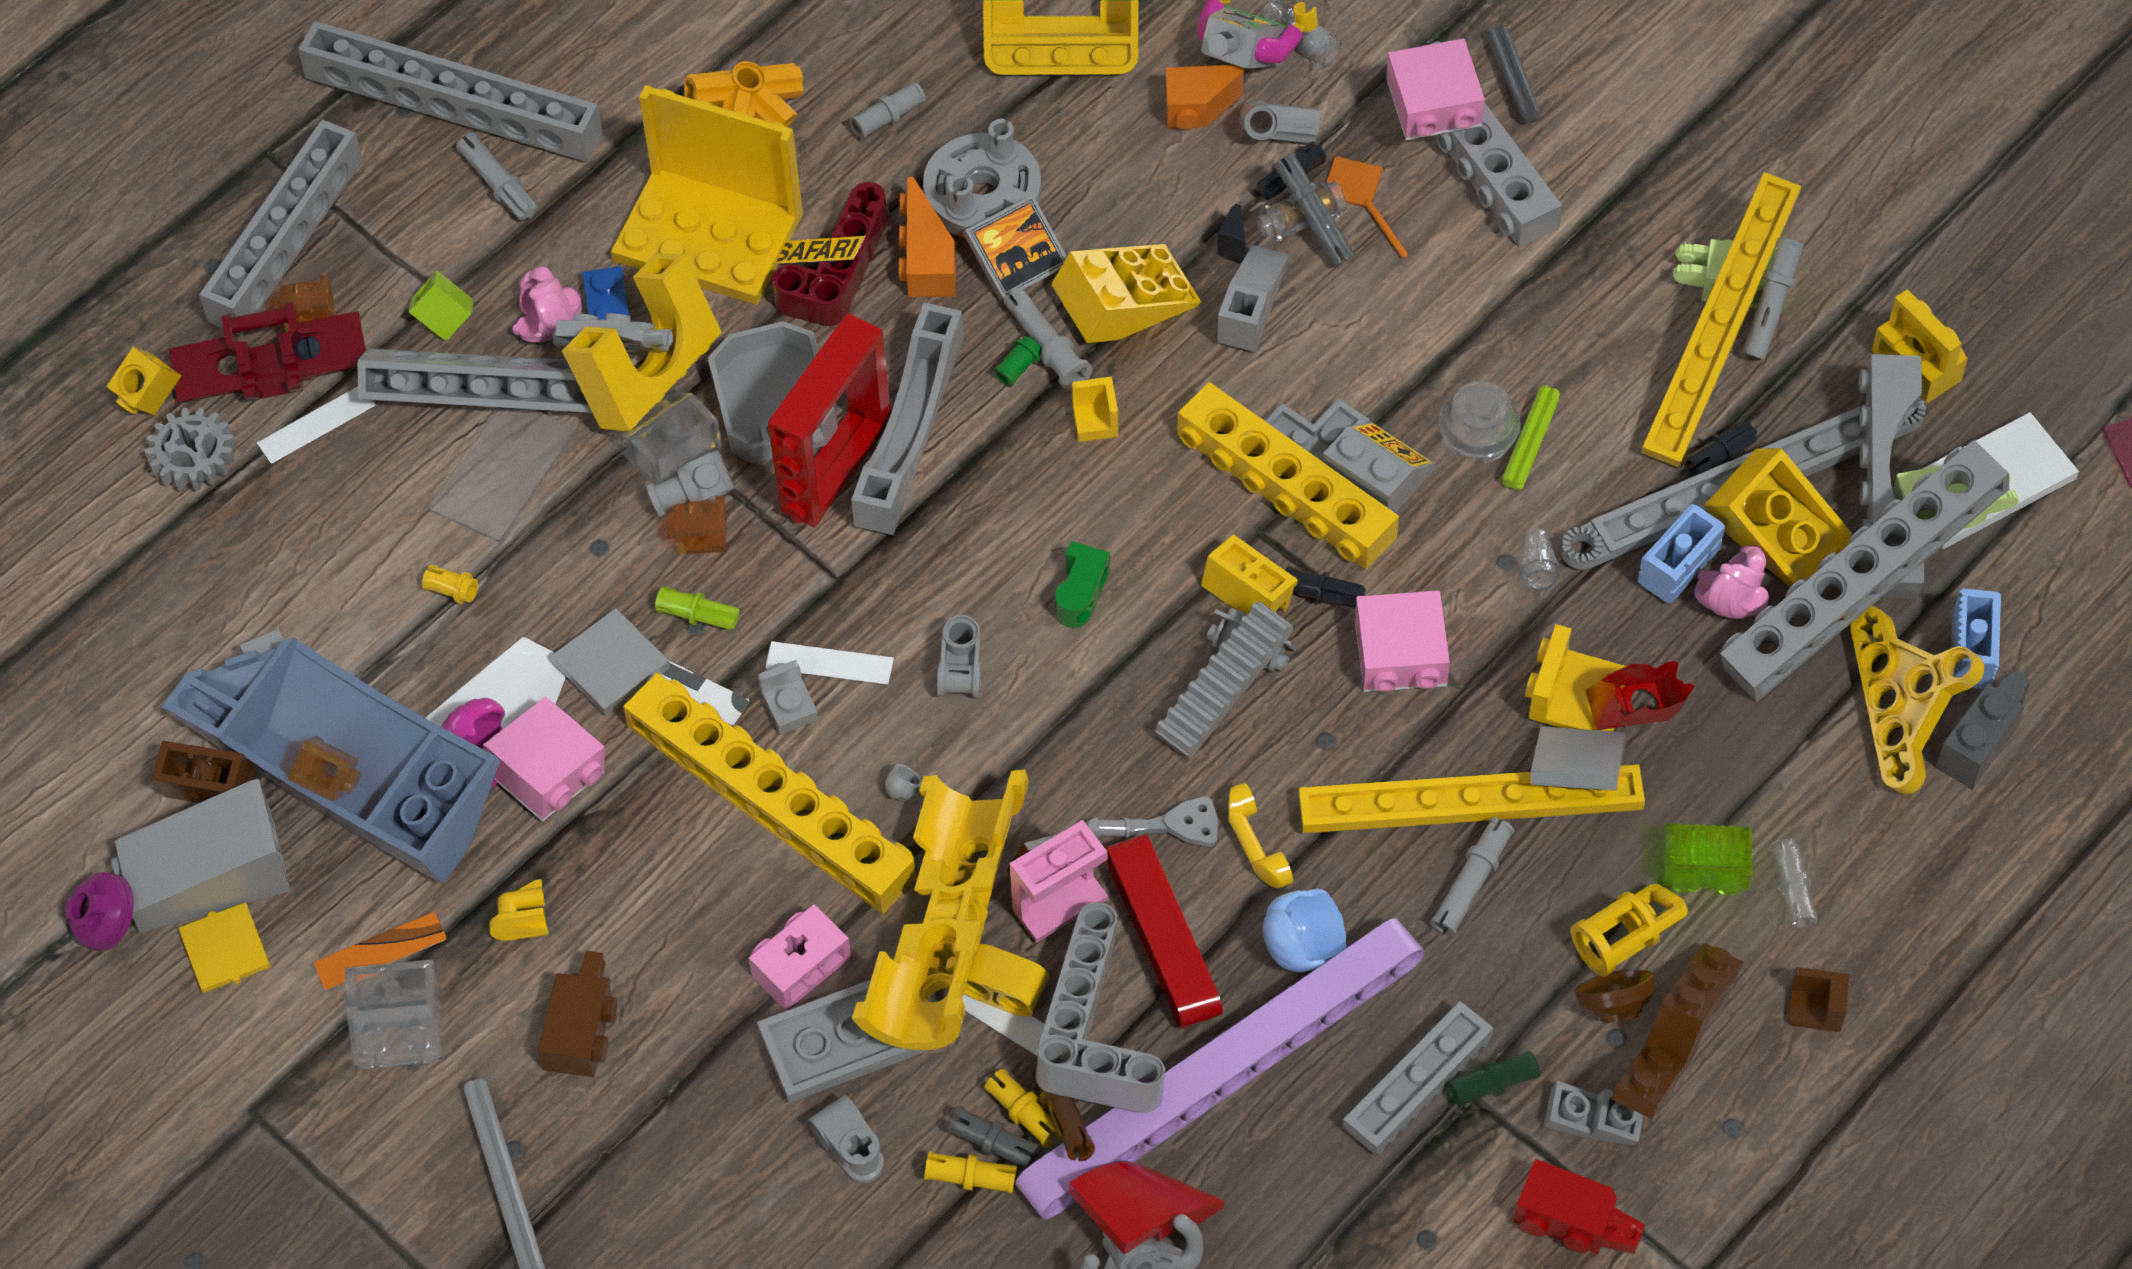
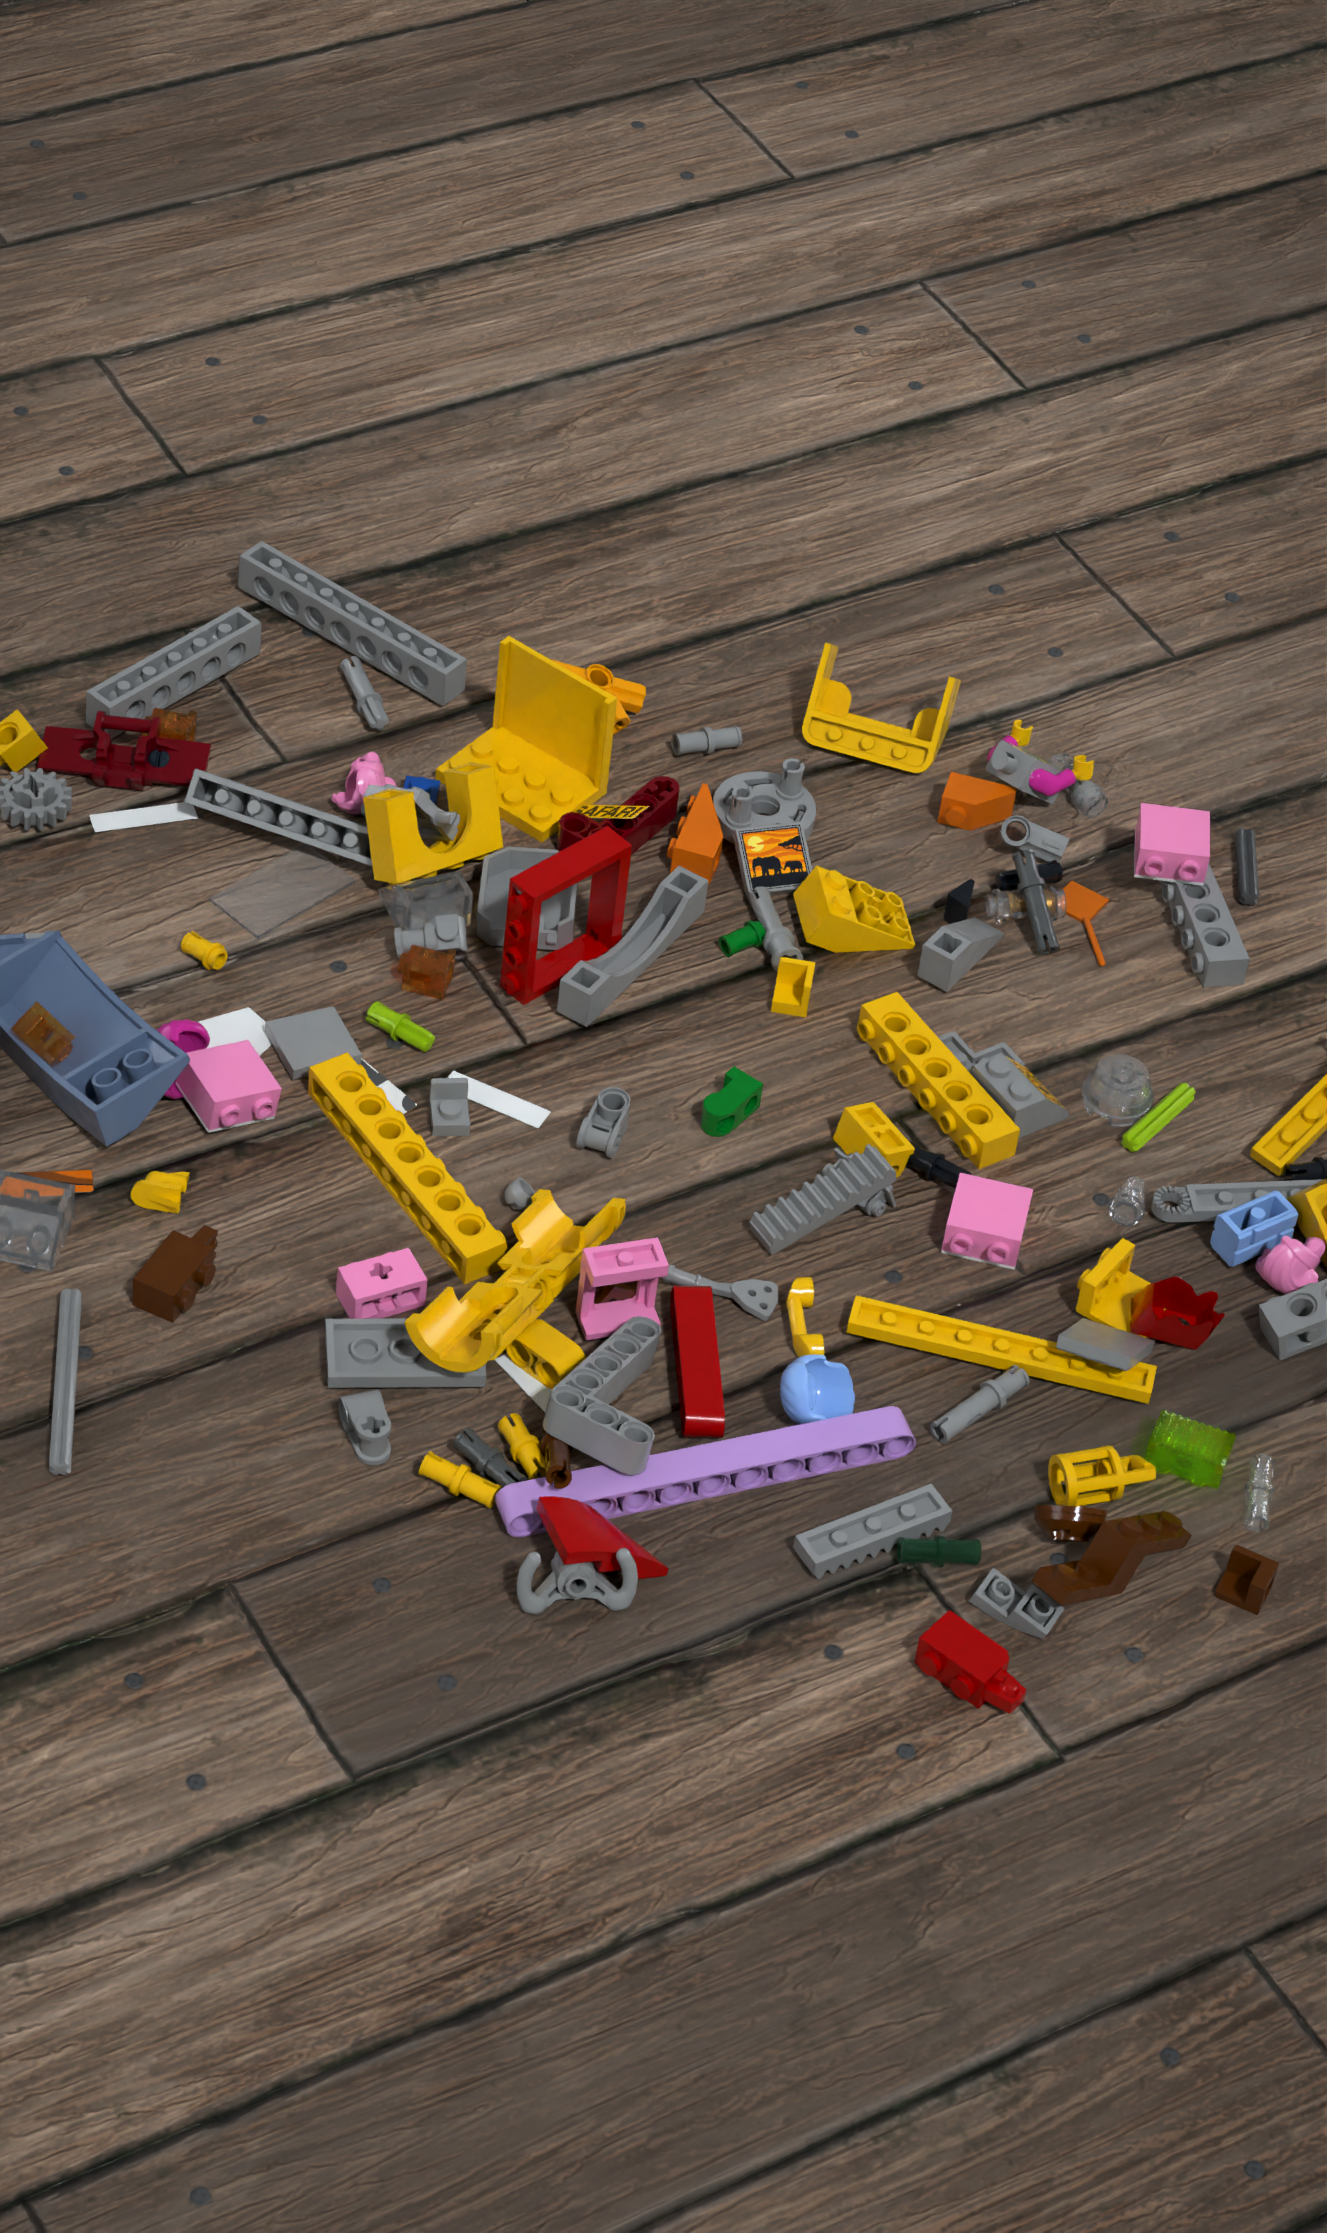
camera: 10 degrees right, 15 degrees down
(441, 305) = (280, 763): lime panel -> none

